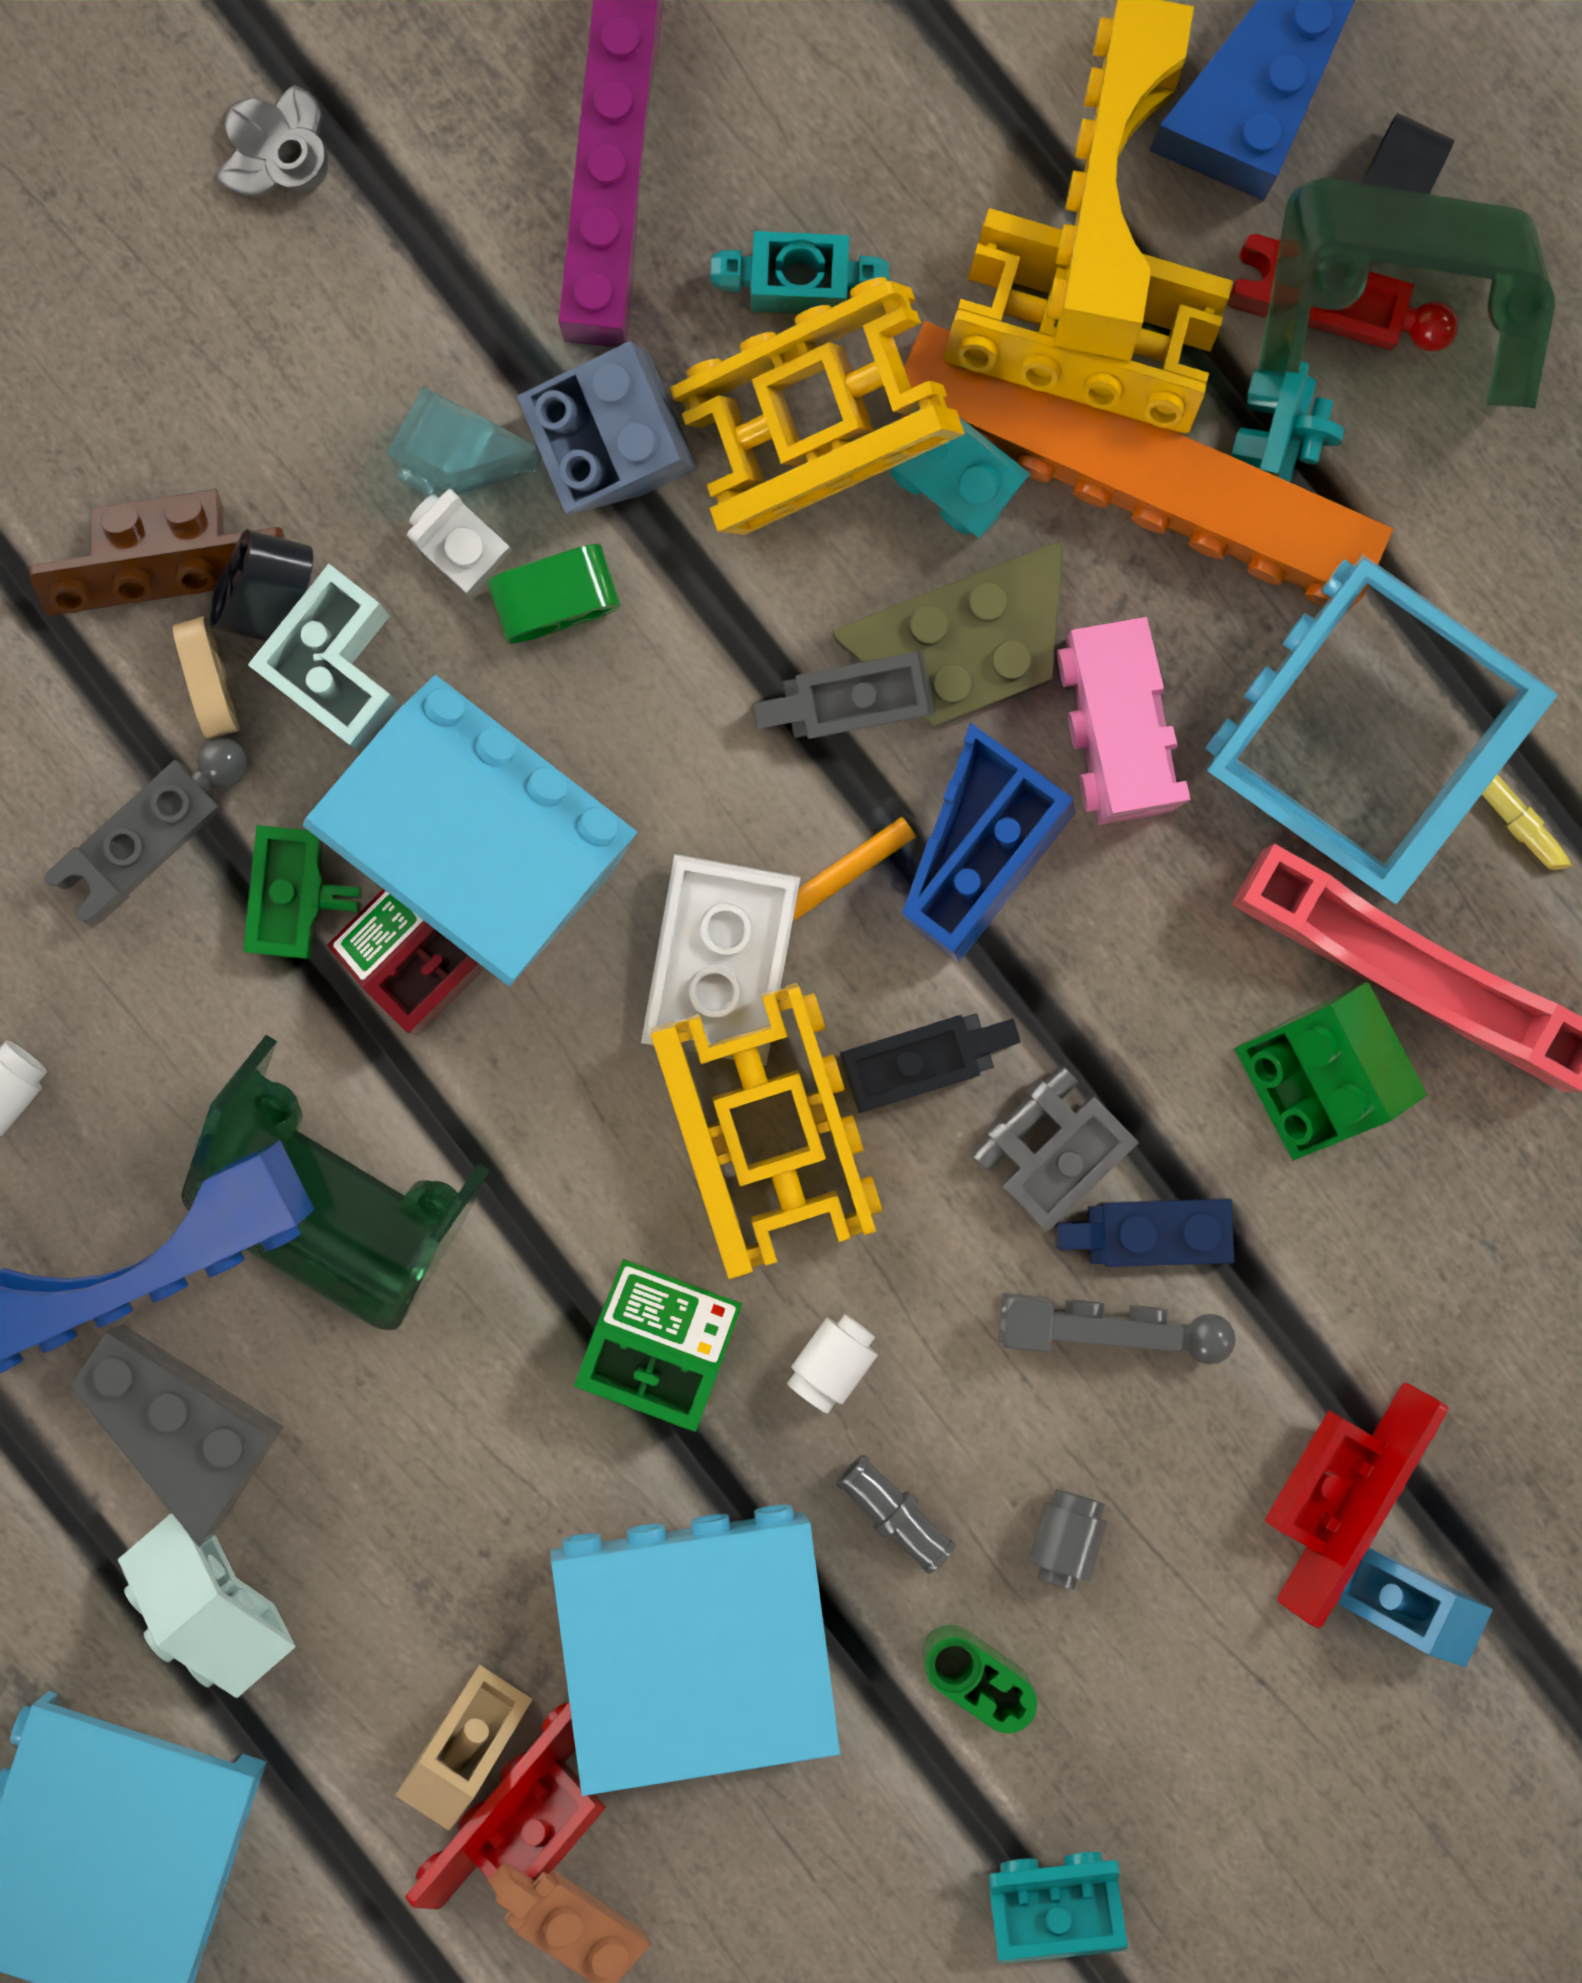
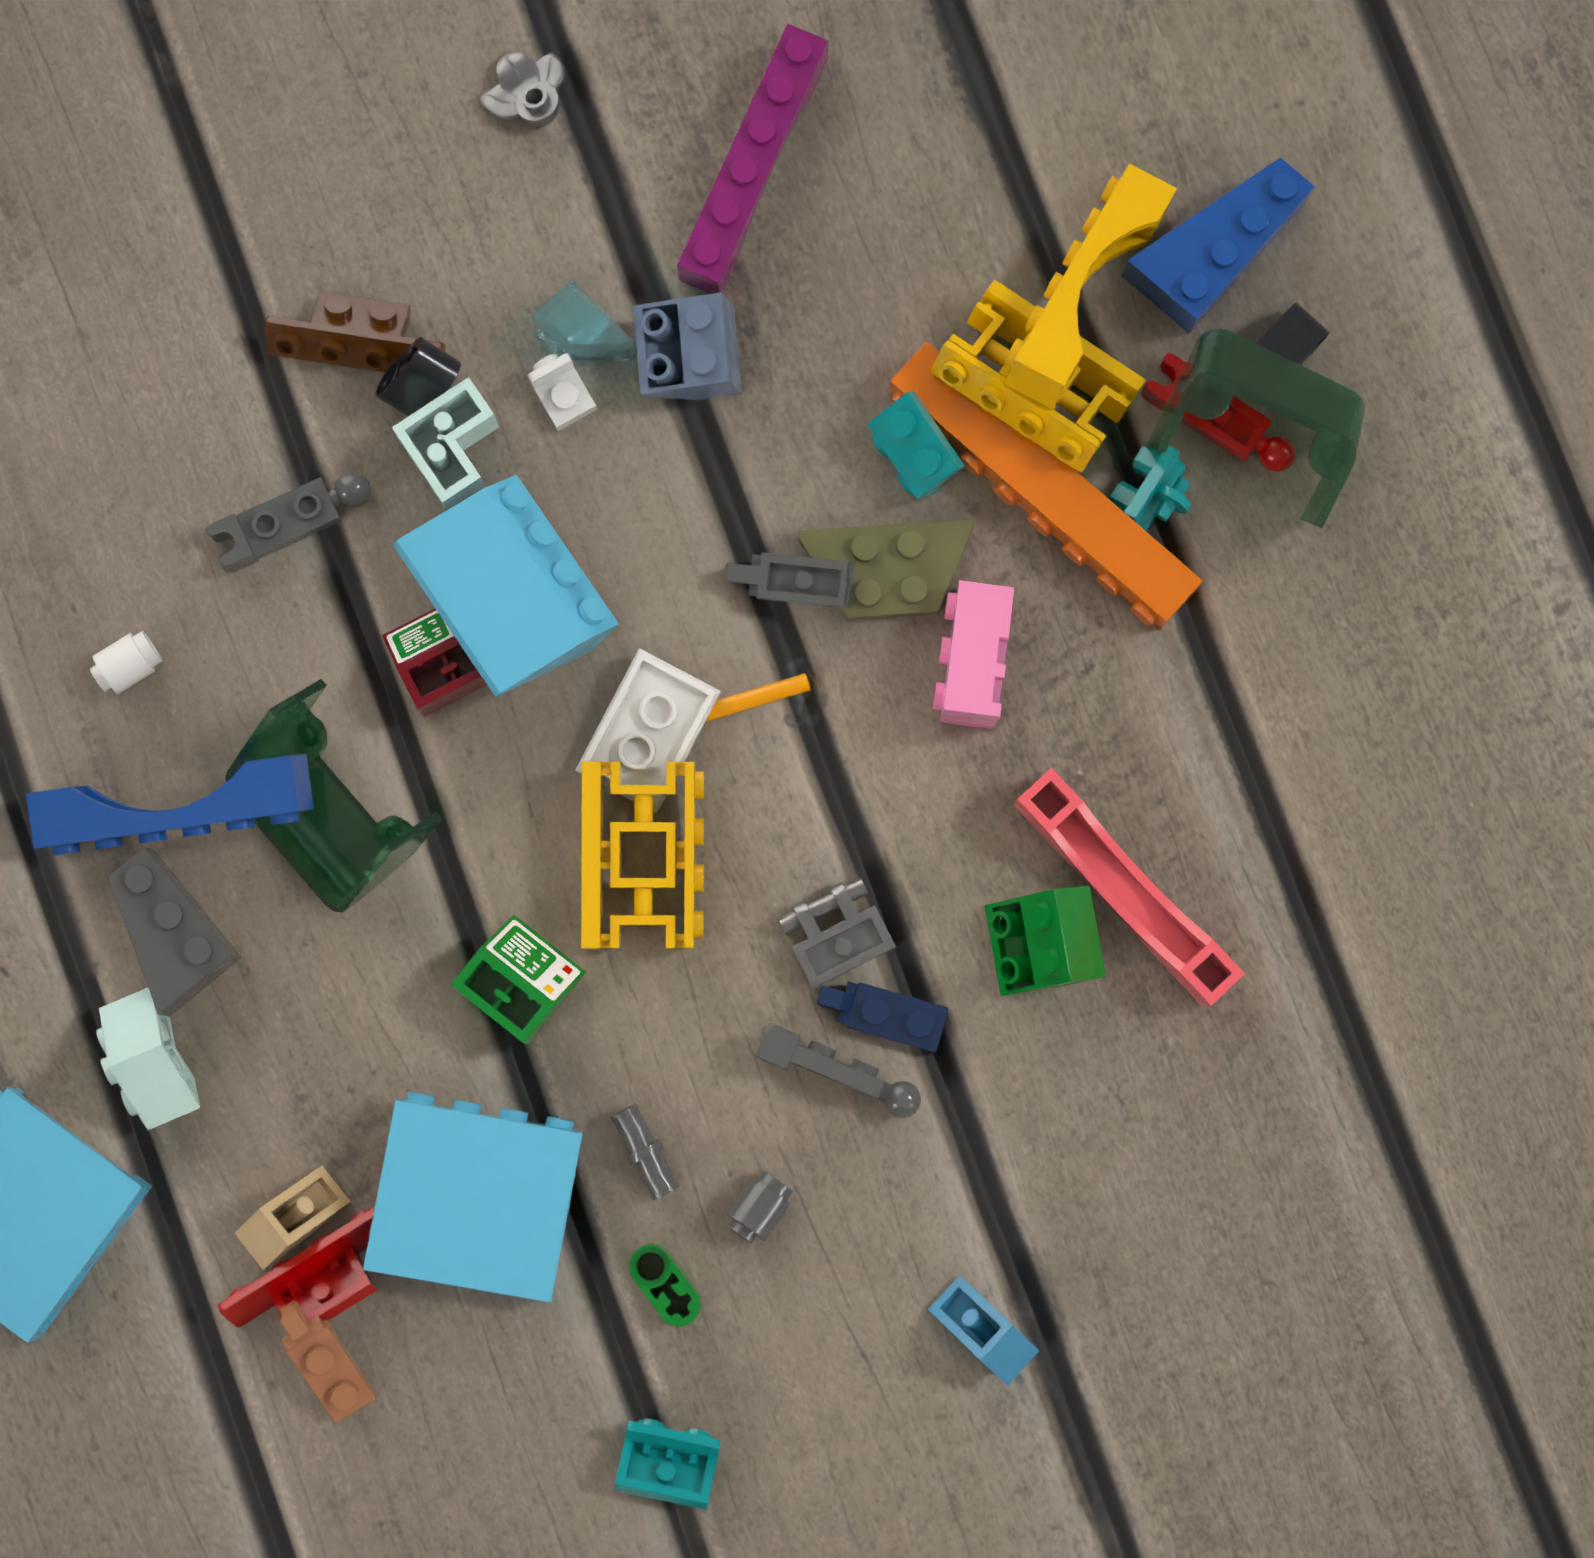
camera: 25 degrees right, 5 degrees down
(206, 678) = (360, 429): tan beam -> none
(289, 893) = (368, 592): green plate -> none
(554, 593) = (615, 446): green beam -> none
(733, 271) = (809, 268): teal piece -> none
(831, 457) = (840, 411): yellow fence -> none
(832, 1363) = (635, 1032): white brick -> none
(924, 1059) = (766, 843): black hinge -> none
(984, 843) = (852, 708): blue wedge -> none
(1344, 1495) = (960, 1237): red bracket -> none
(1459, 792) = (1085, 662): medium azure window -> none
(1525, 825) = (1235, 814): light yellow piece -> none

